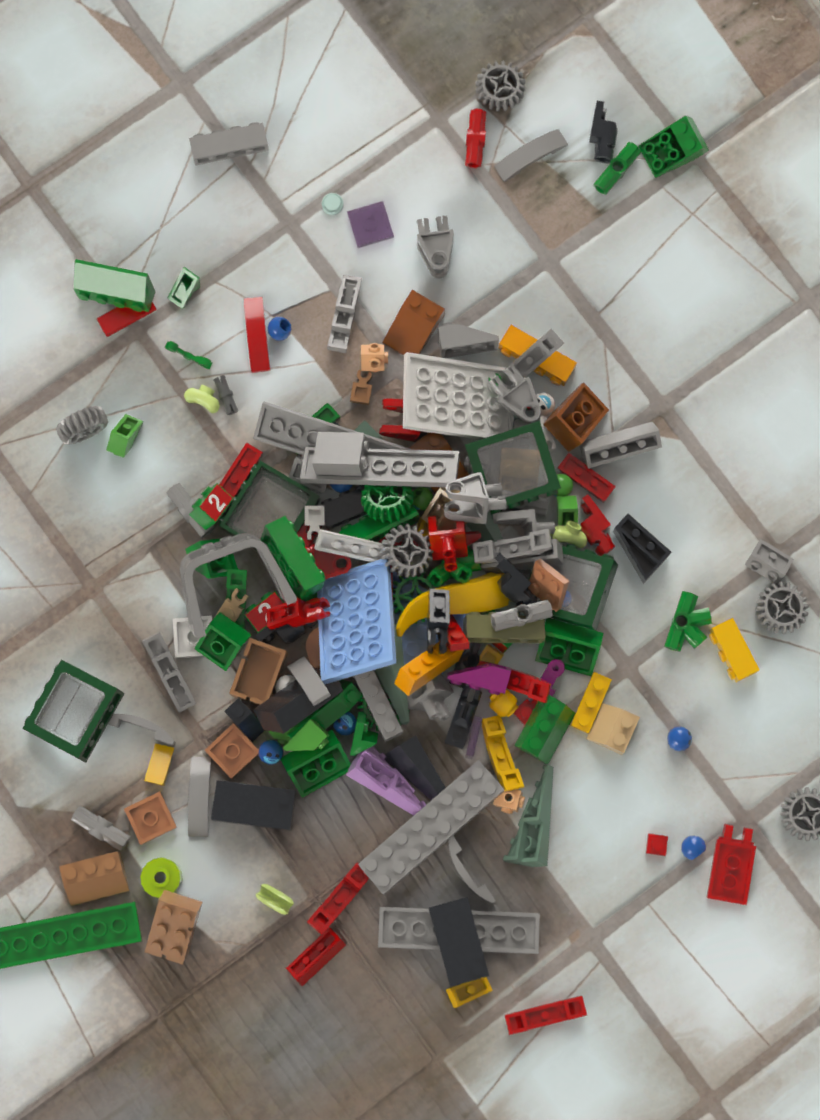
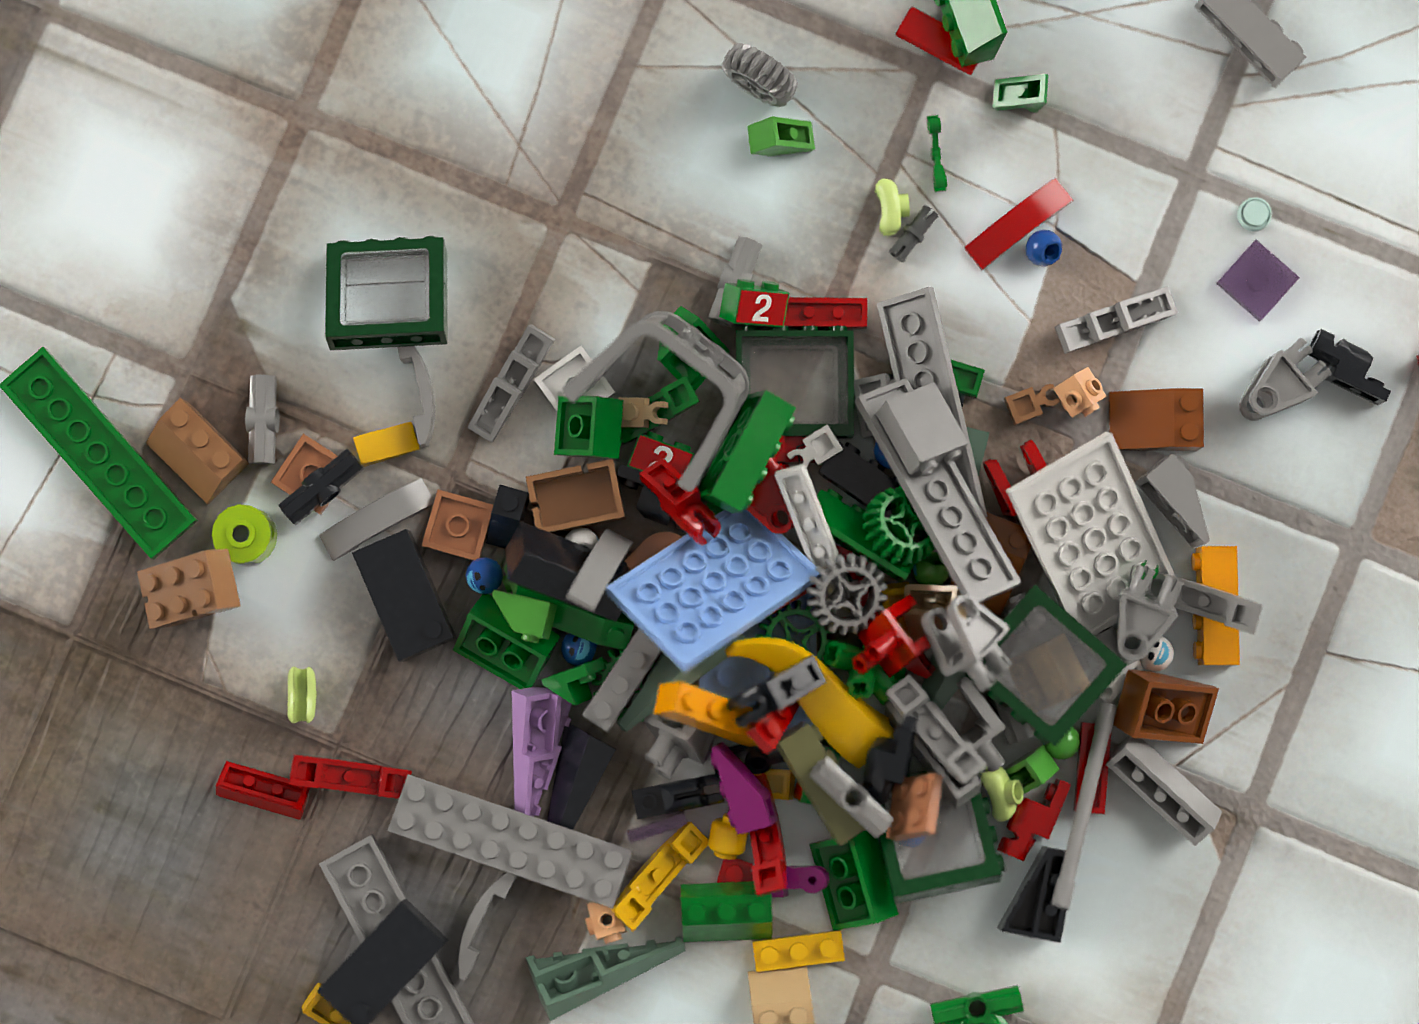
camera: 60 degrees right, 5 degrees up
(161, 815) = (321, 487): none -> black piece
(448, 205) = (1348, 366): none -> black plate
(639, 527) = (1066, 881): none -> light grey piece

